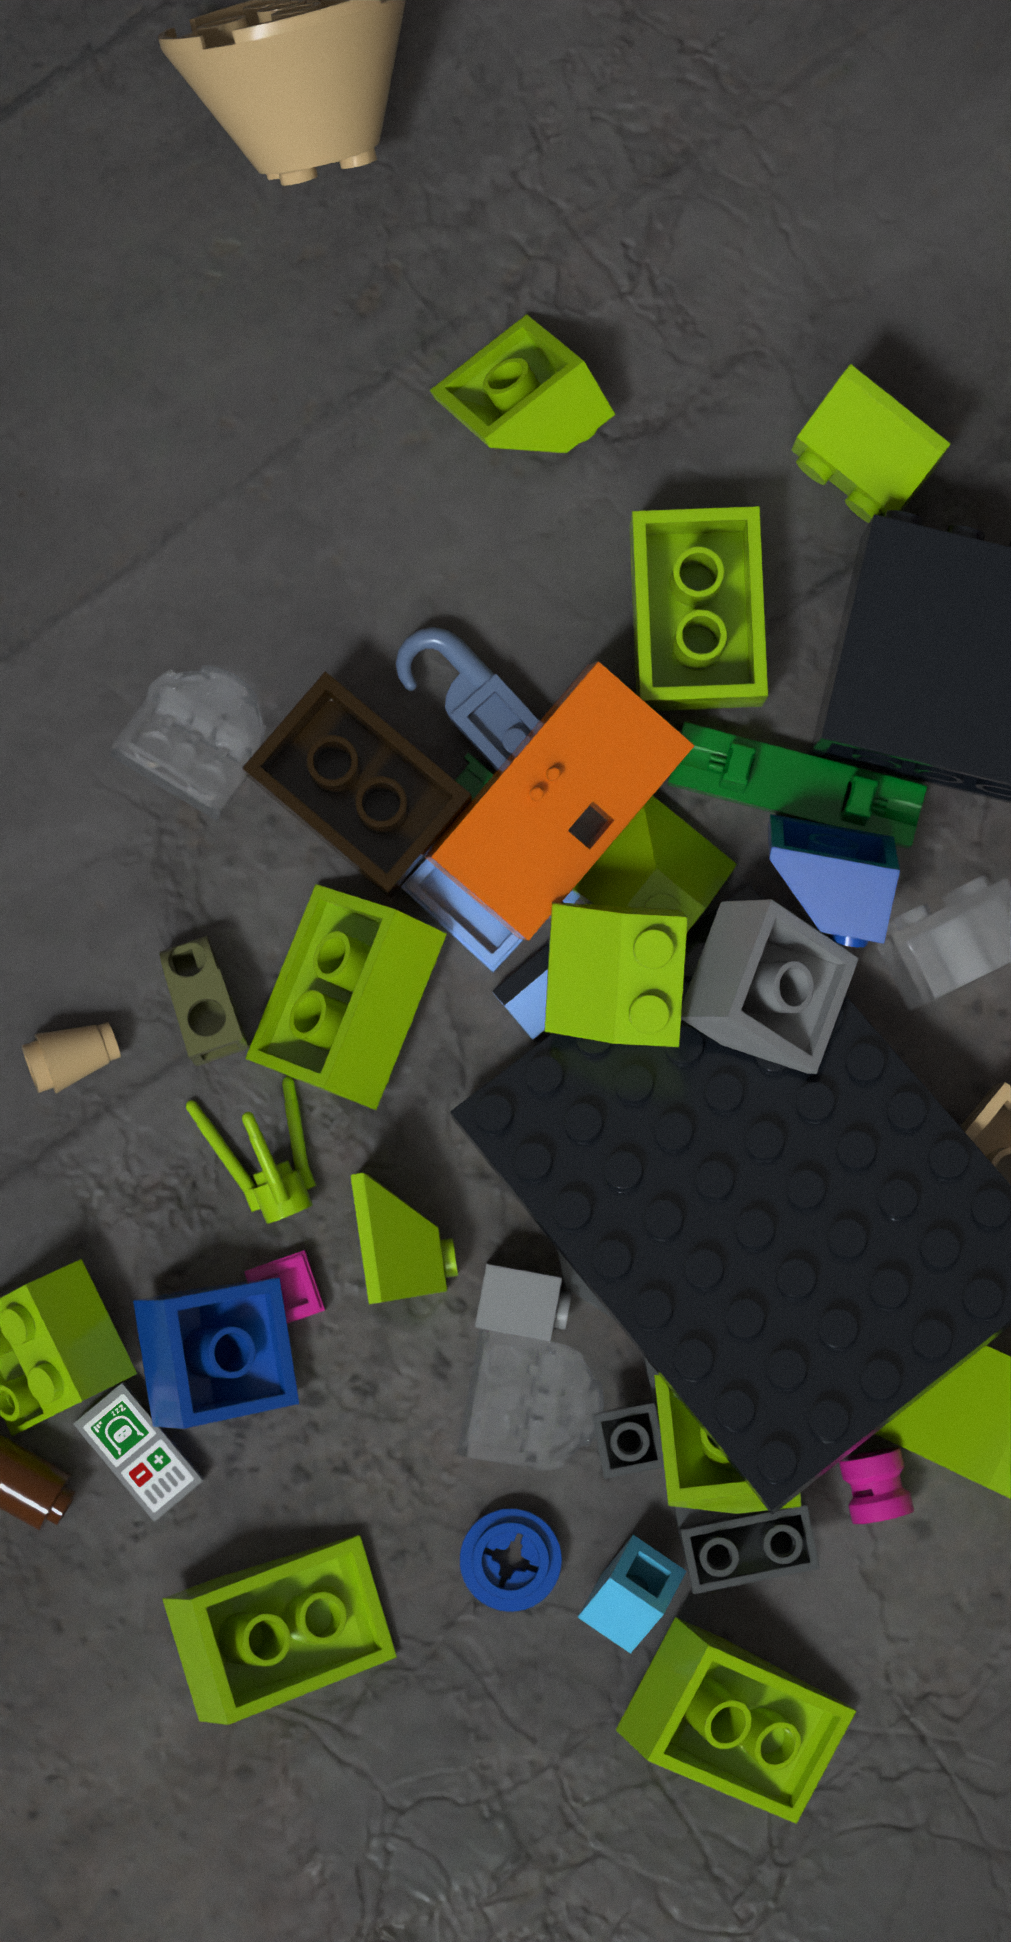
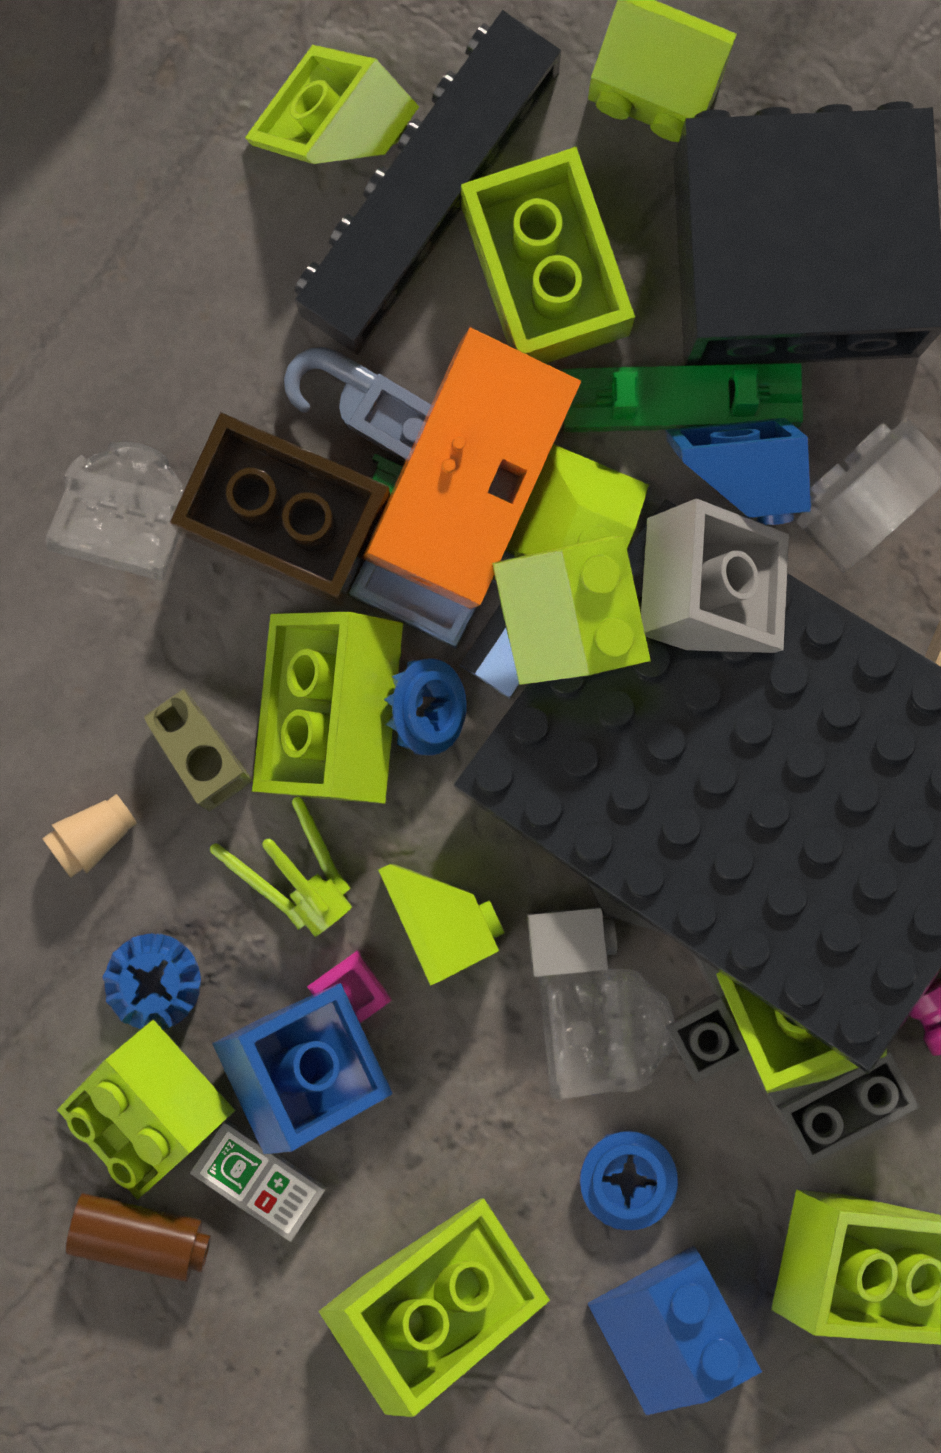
camera: 10 degrees left, 0 degrees up
(92, 1191) = (180, 978): none -> blue gear
(459, 1041) = (443, 717): none -> blue gear
(510, 1726) = (674, 1335): none -> blue slope
(594, 499) = (421, 190): none -> black brick
(632, 1594) = (751, 1181): medium azure brick -> none

